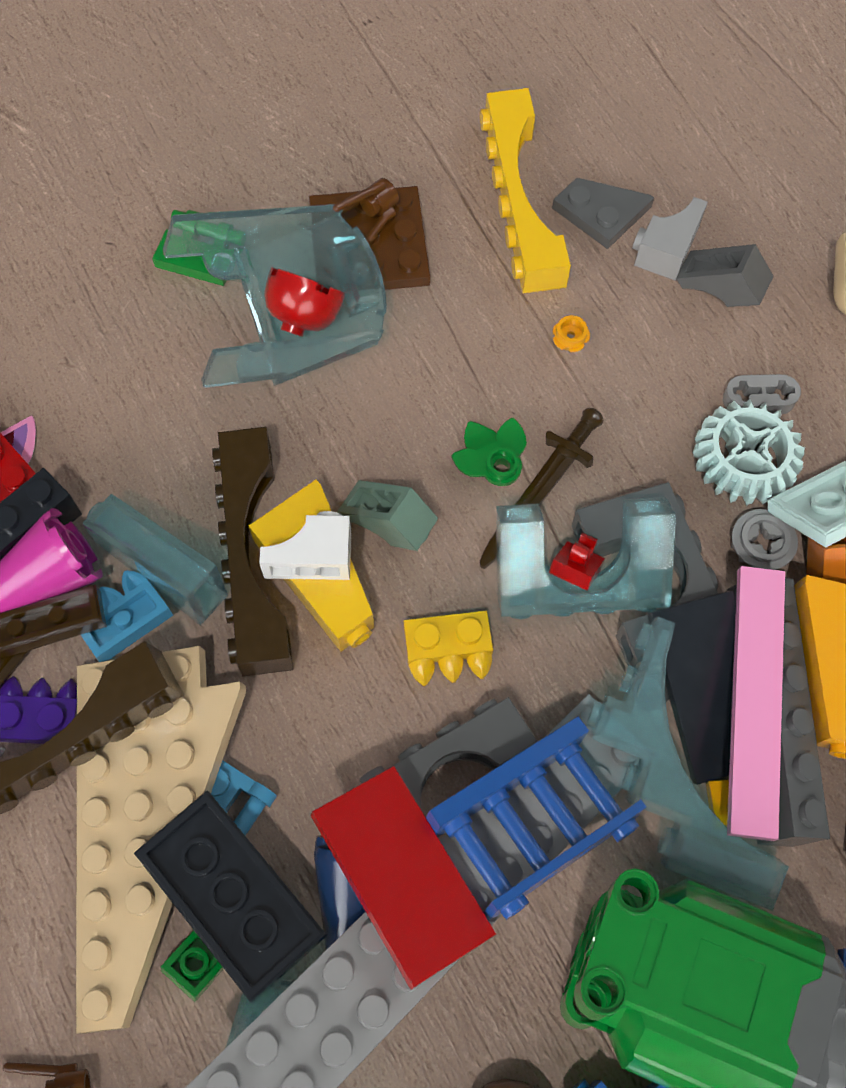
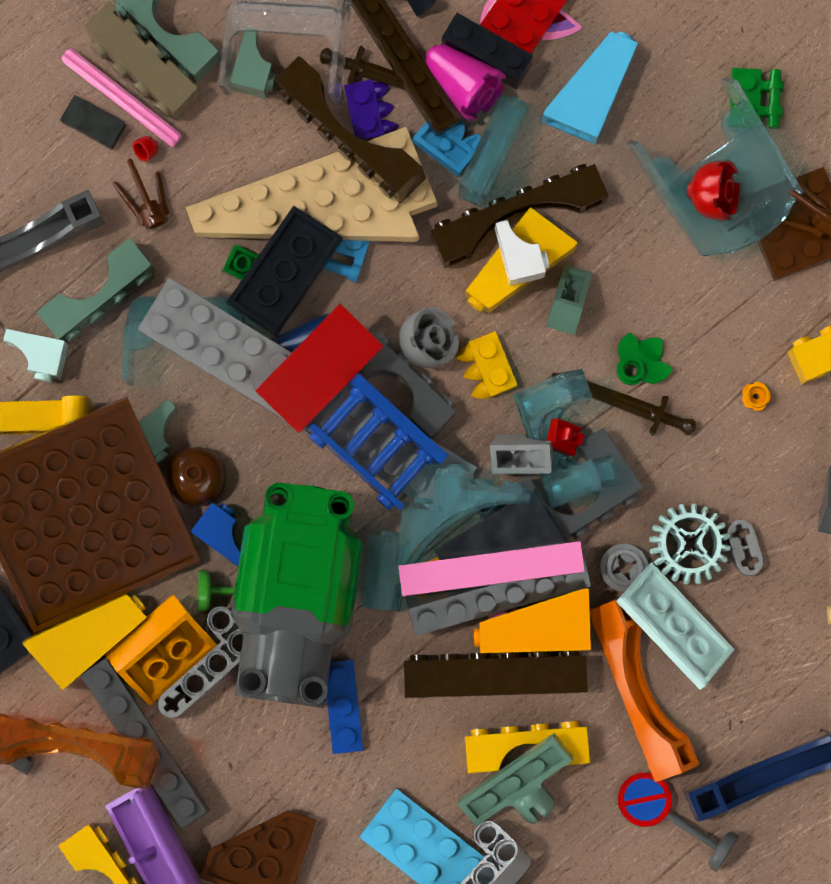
camera: 75 degrees right, 15 degrees up
(124, 419) = (589, 94): none -> medium azure slope
(391, 710) = (428, 338): none -> light grey cylinder
(592, 623) = (520, 455): none -> light grey arch

